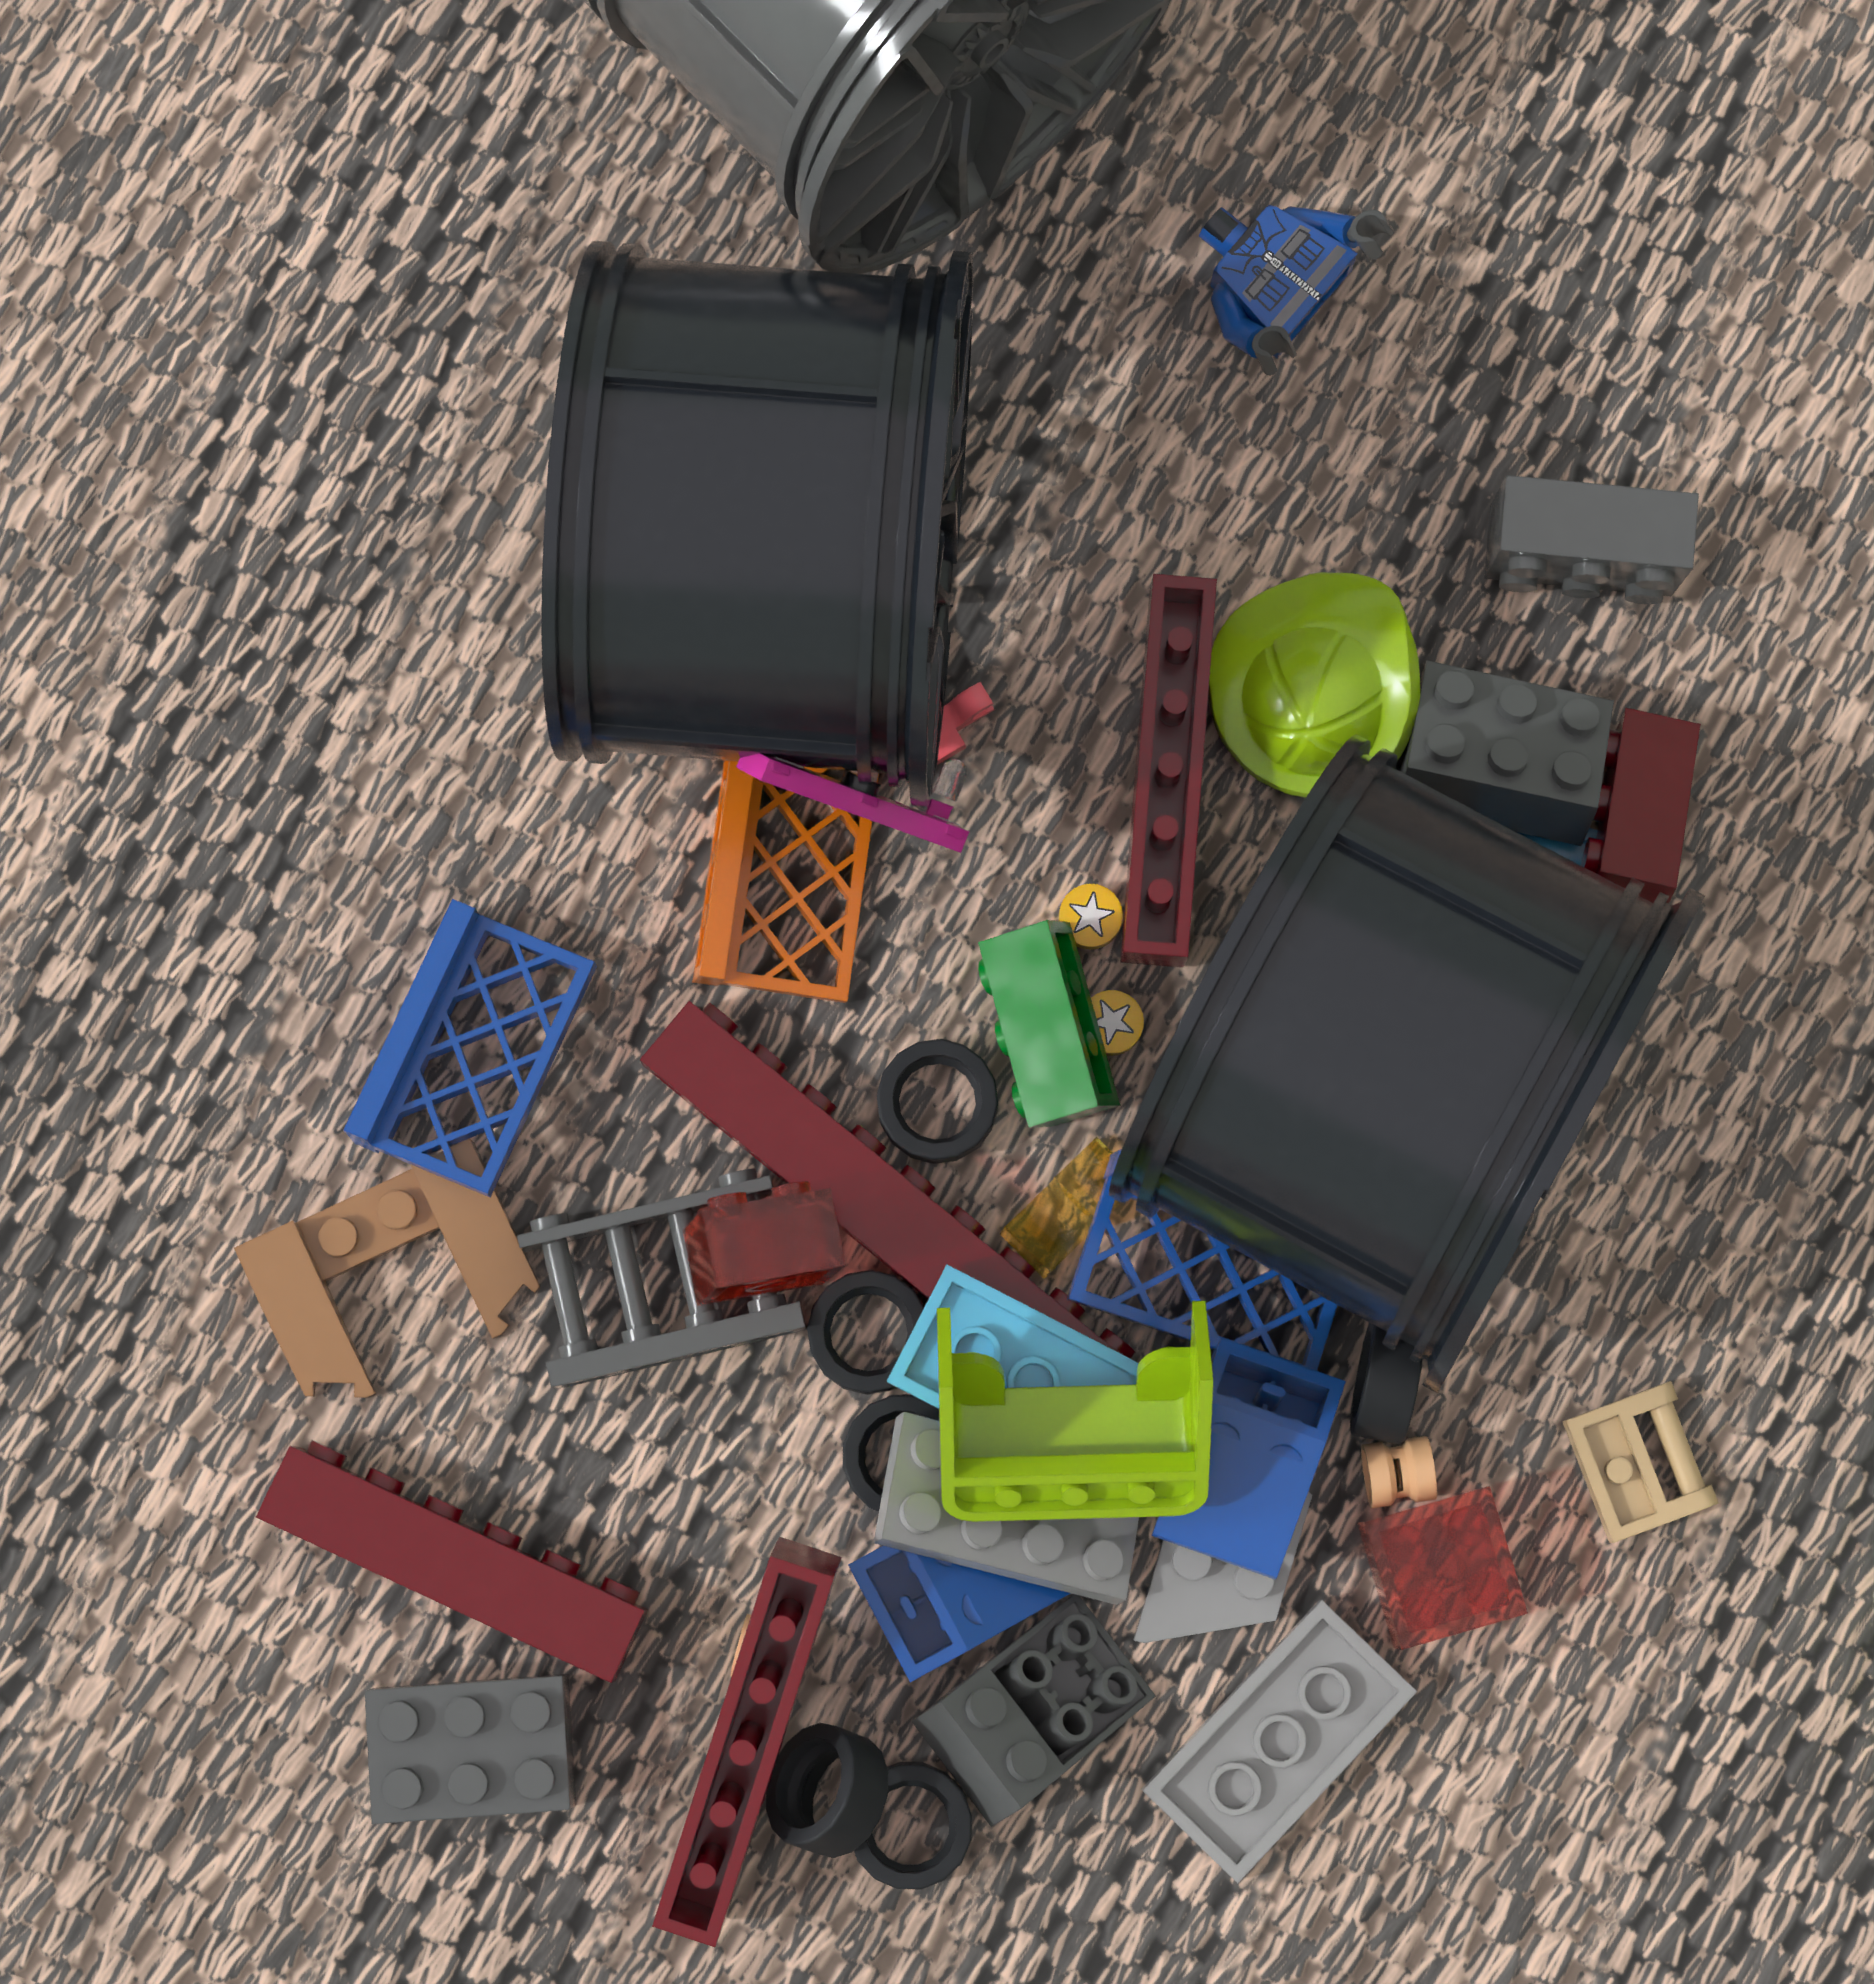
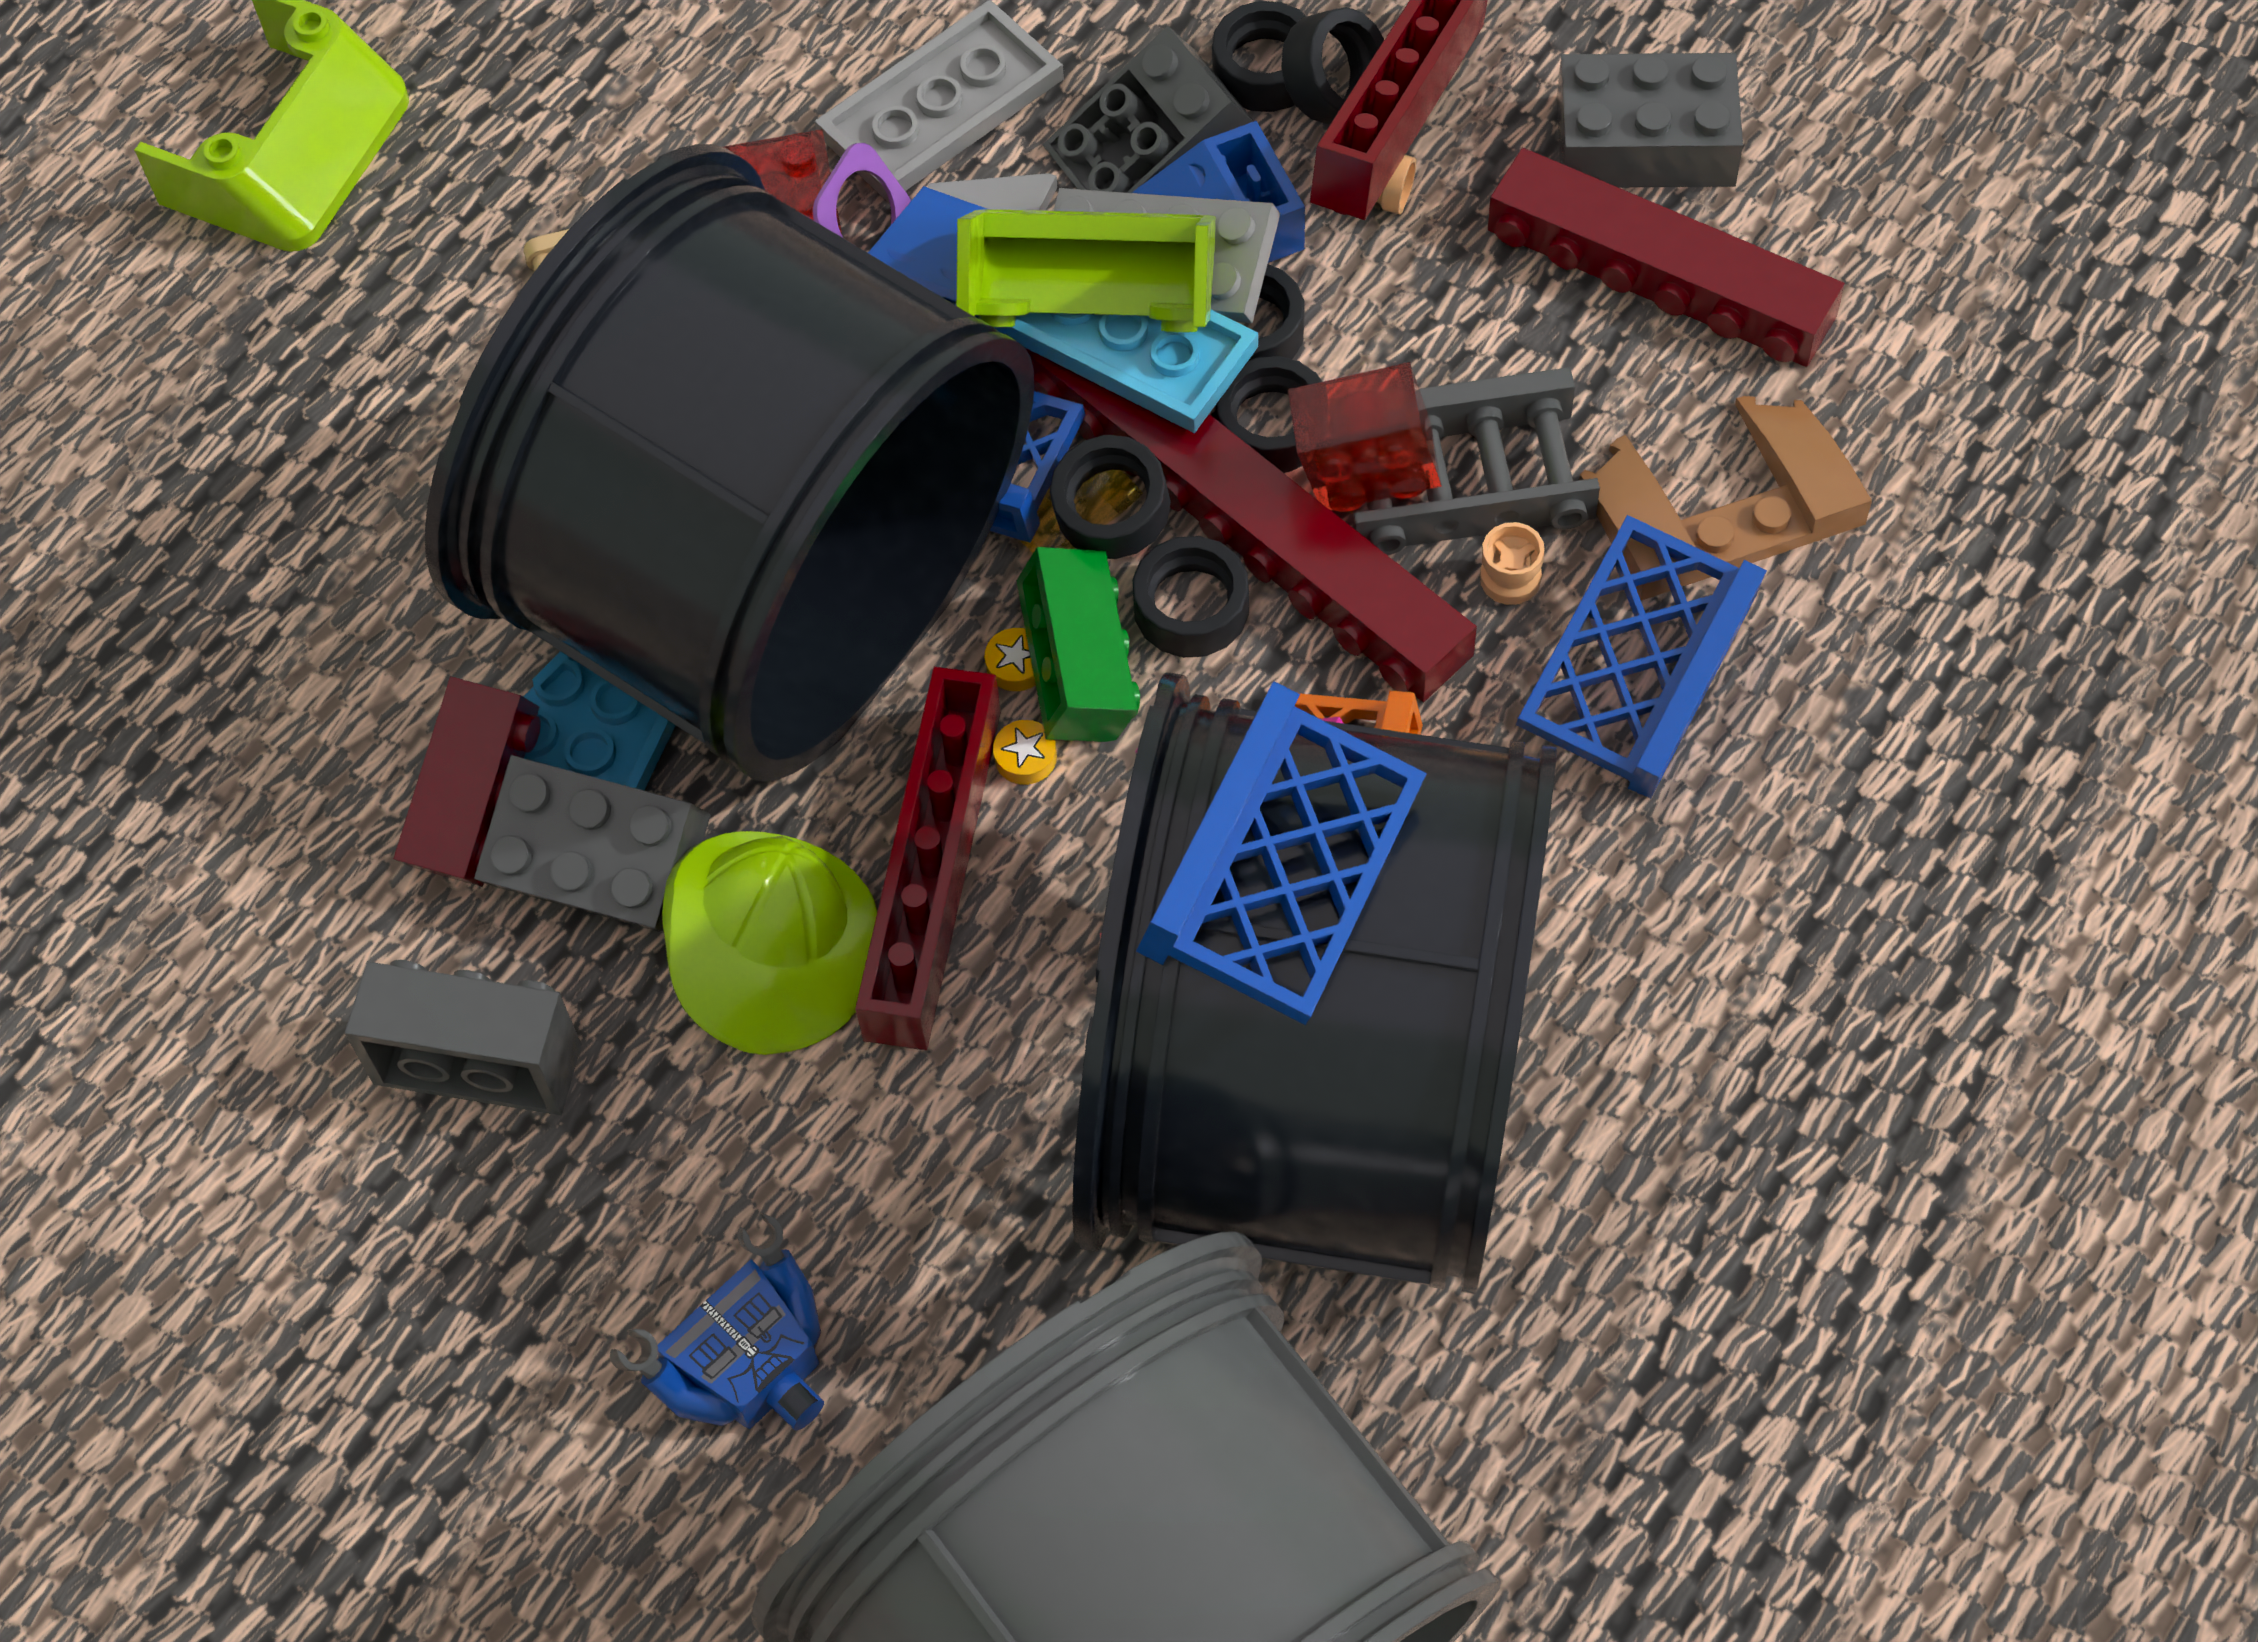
camera: 170 degrees left, 20 degrees down
(600, 1149) = (1512, 563): none -> light nougat wheel
(850, 447) = (1220, 843): none -> blue fence
(1032, 1137) = (1098, 456): none -> black tyre
(1380, 1519) = (857, 158): none -> medium lavender piece

